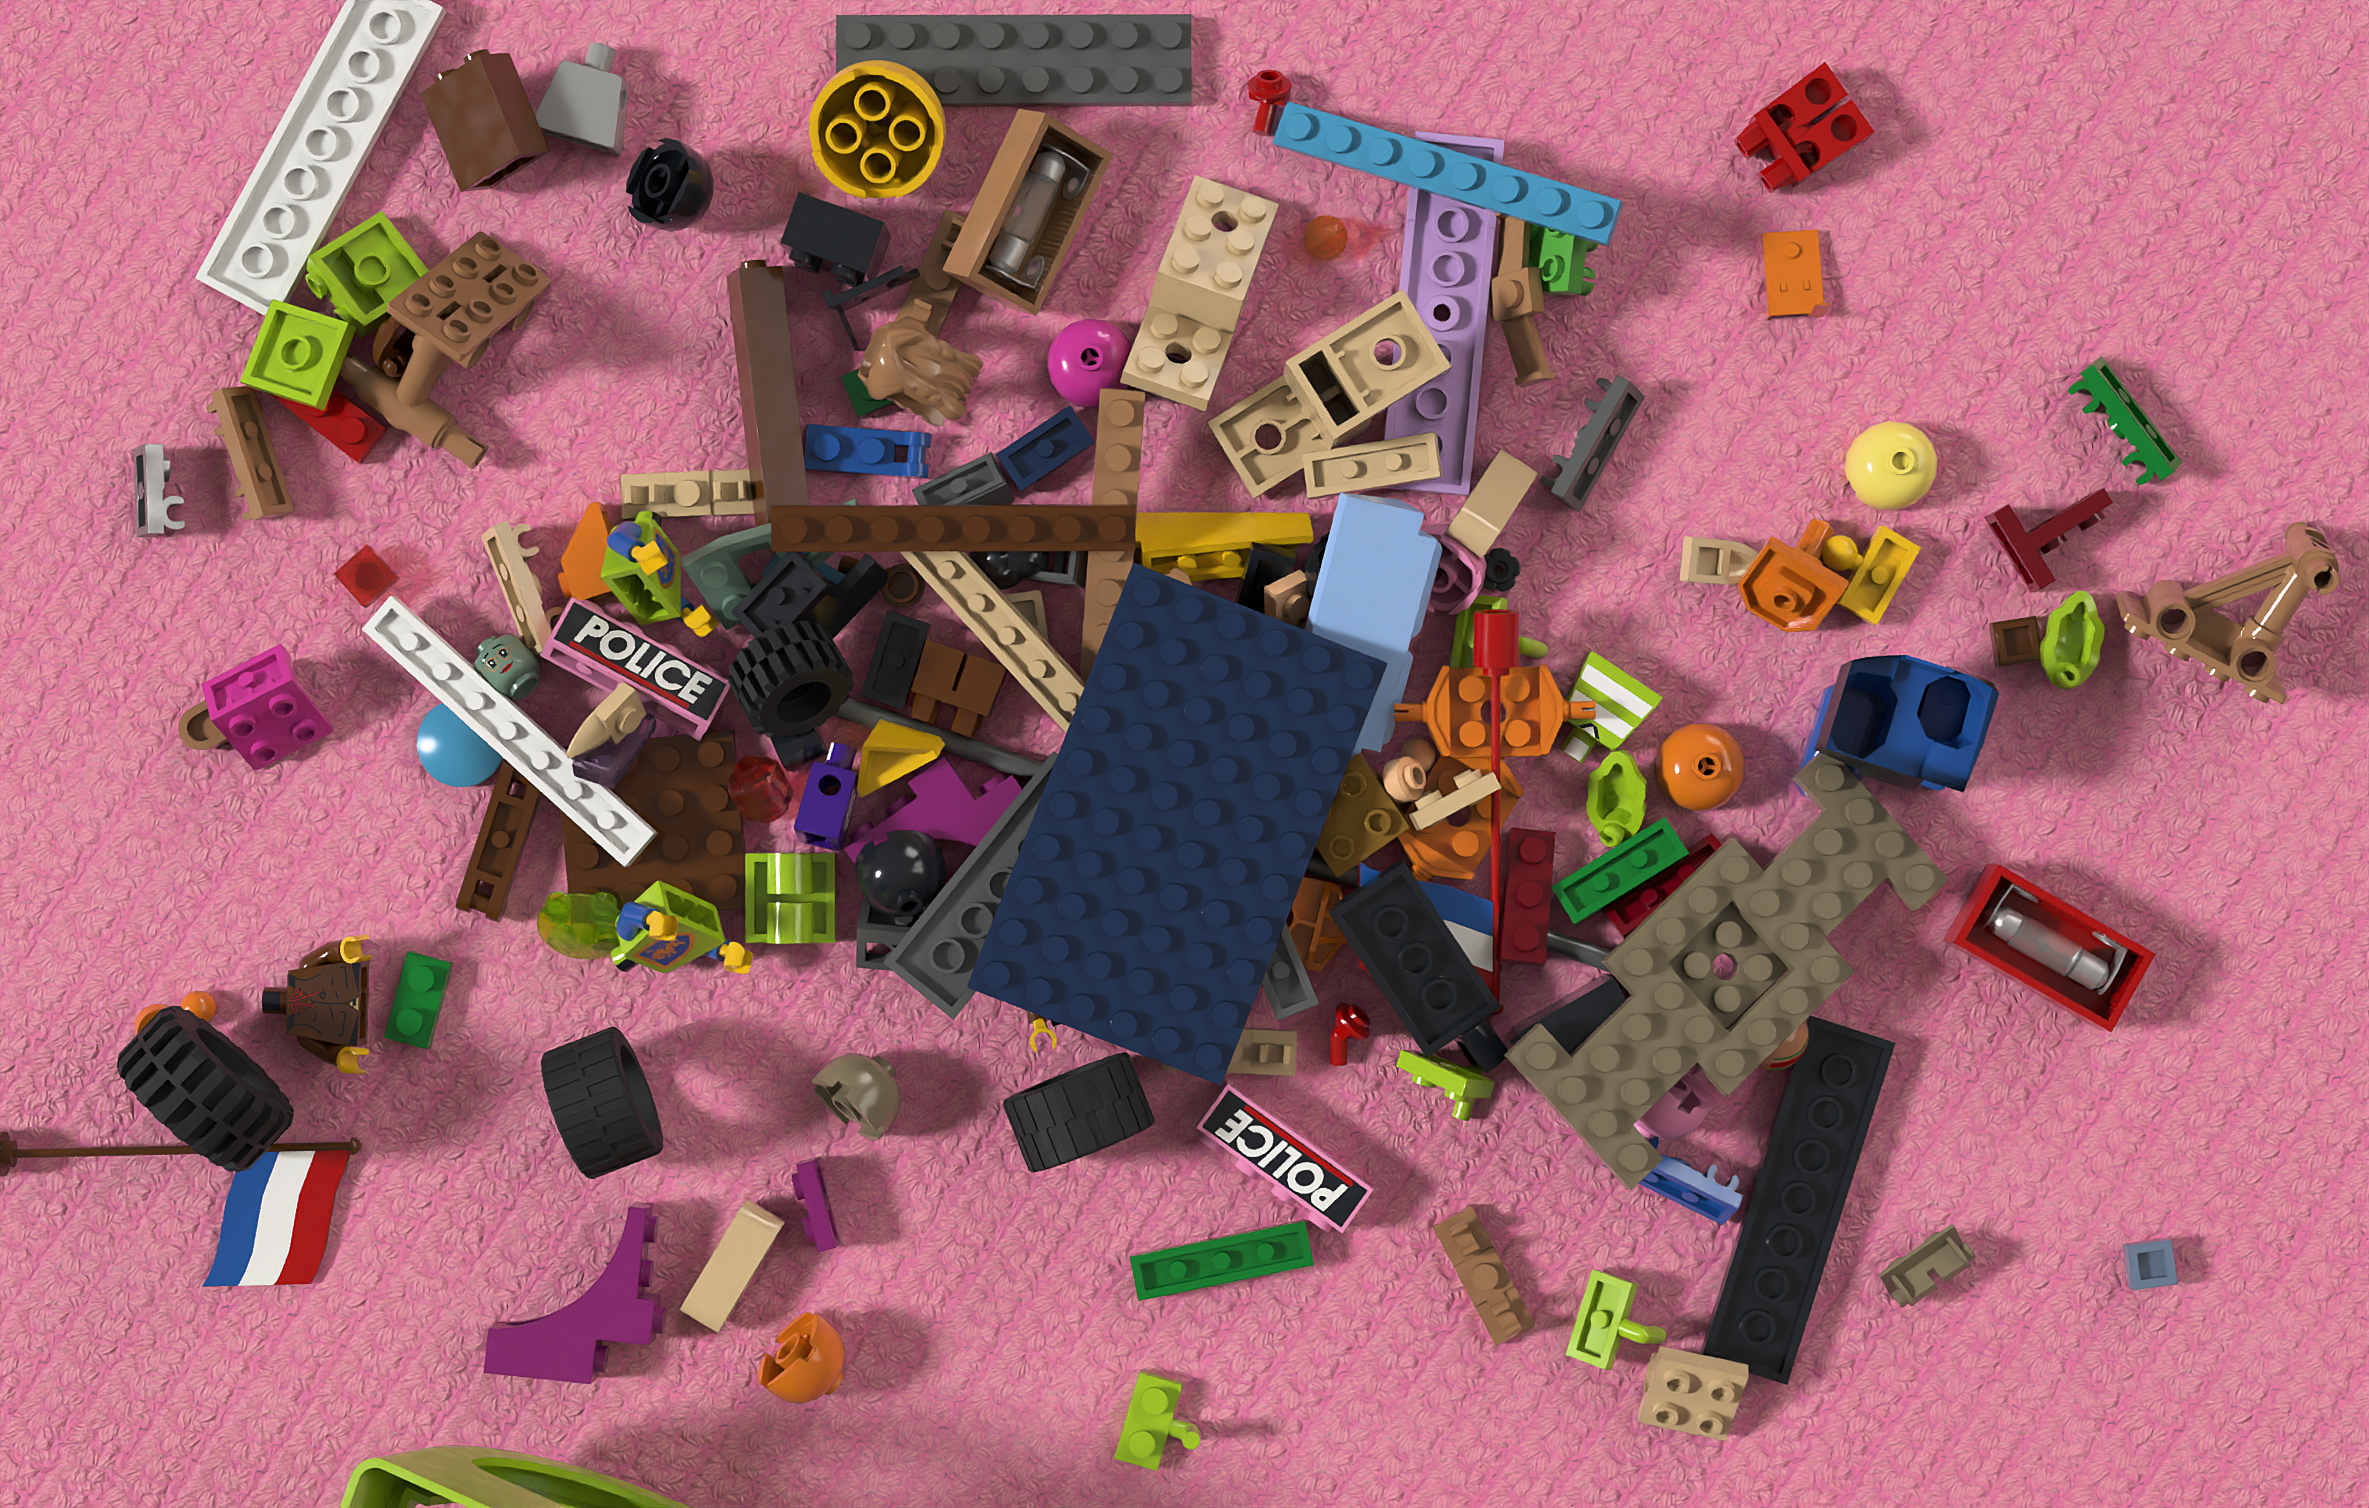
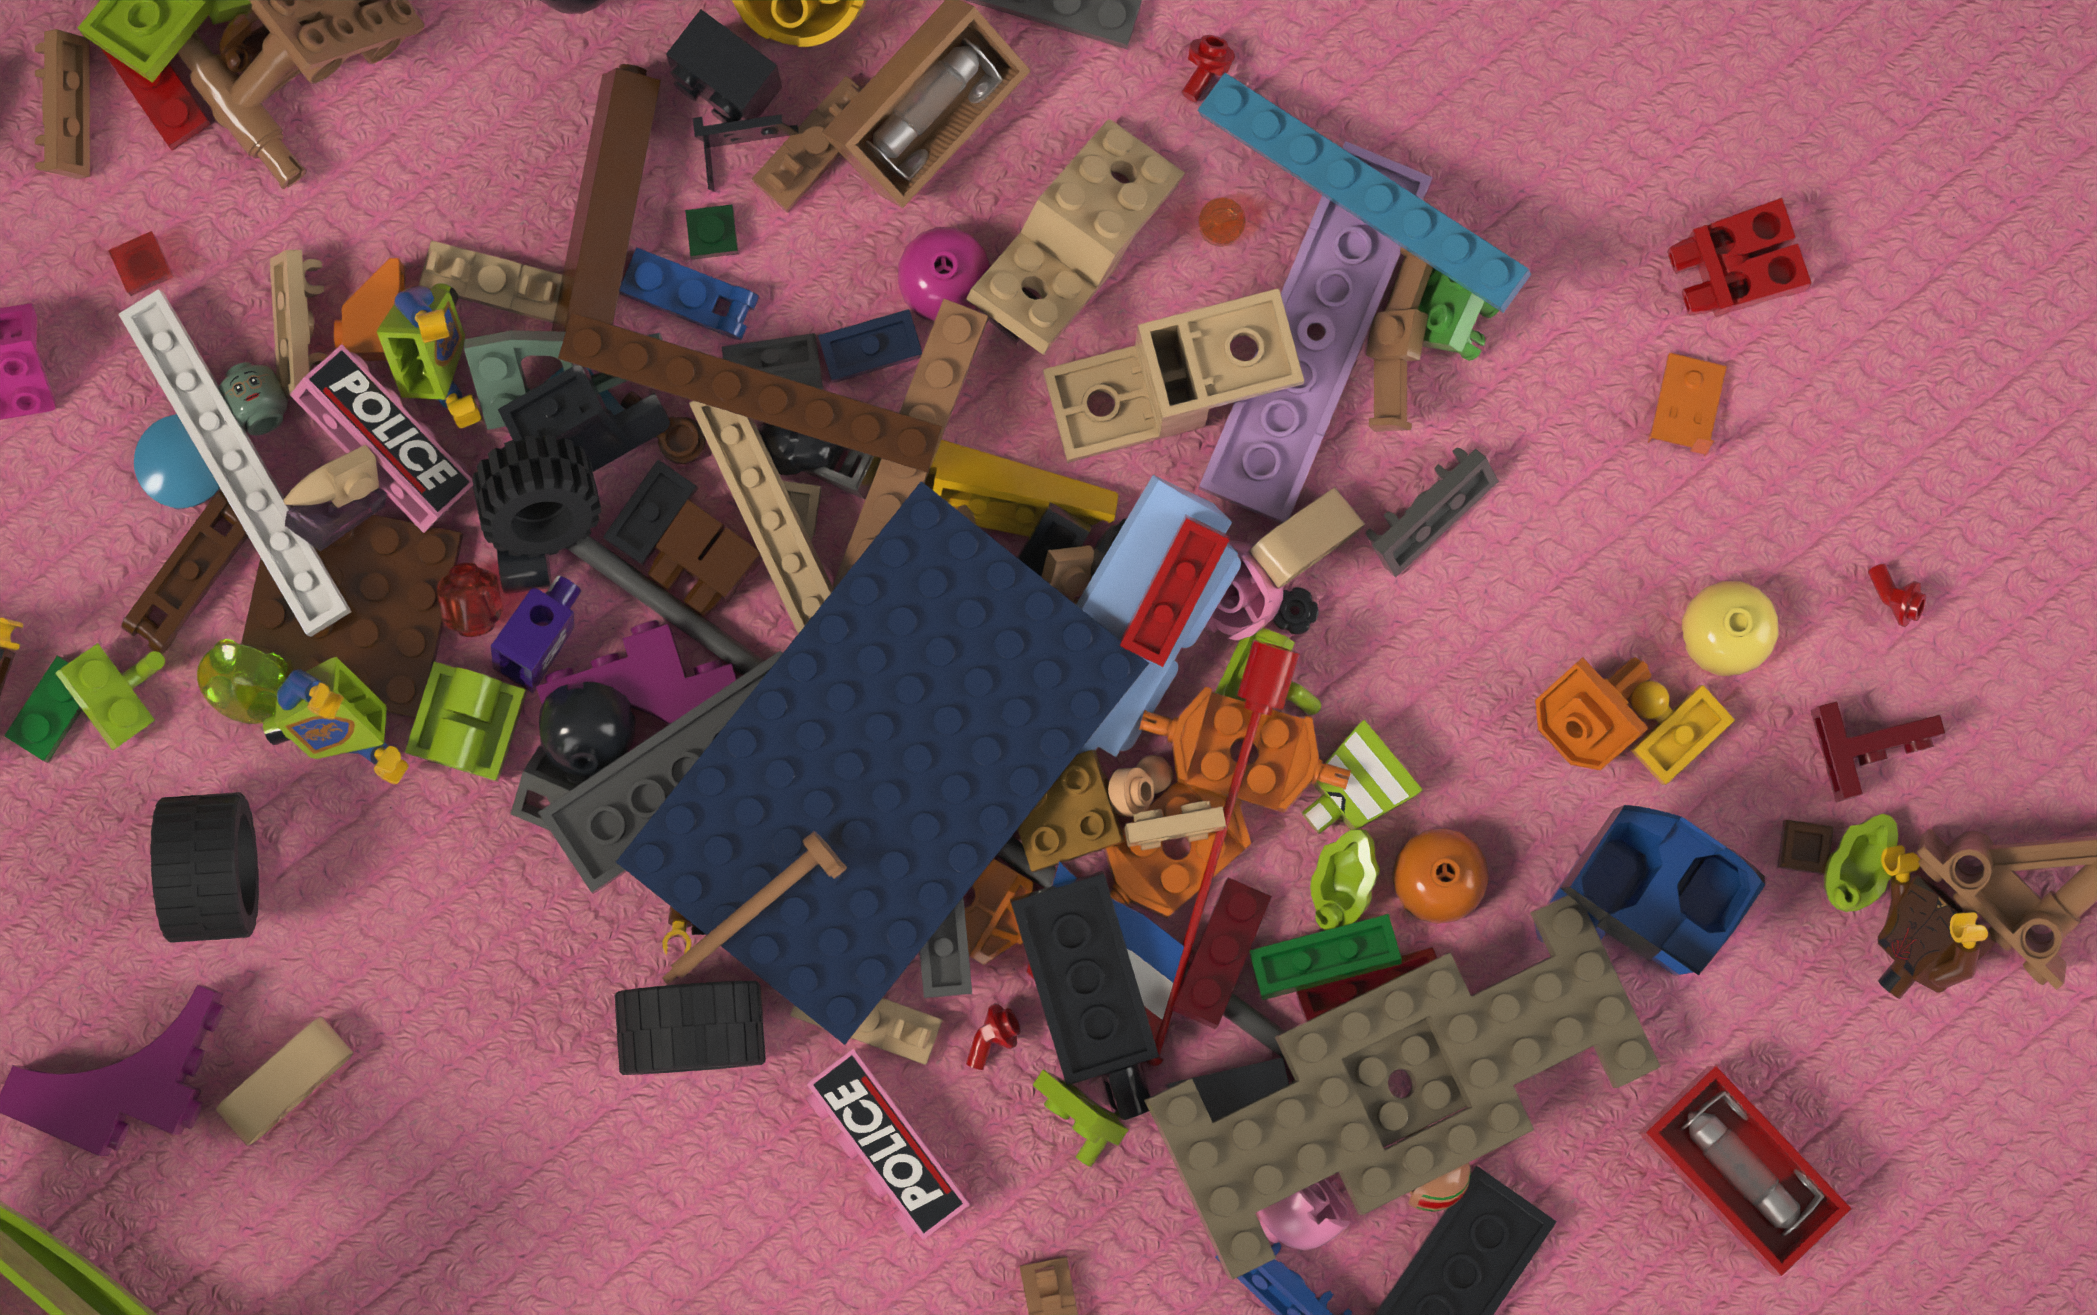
camera: 10 degrees right, 5 degrees down
(464, 972) = (108, 695): none -> lime plate
(806, 1362) = (328, 1203): orange cylinder -> none
(820, 1223) = (391, 1024): magenta plate -> none
(860, 1092) = (473, 941): dark tan cylinder -> none
(893, 752) = (616, 603): yellow slope -> none
(918, 371) = (765, 227): medium nougat piece -> none
(1146, 925) = (818, 853): none -> medium nougat piece
(1221, 1260) = (790, 1232): green plate -> none
(1372, 466) = (1197, 462): tan plate -> none
(1391, 591) = (1174, 590): none -> red plate
(1714, 560) = (1518, 668): tan plate -> none
(2040, 395) = (1905, 602): none -> red plate
(2127, 420) = (1986, 655): green plate -> none
(2149, 686) = (1926, 931): none -> torso

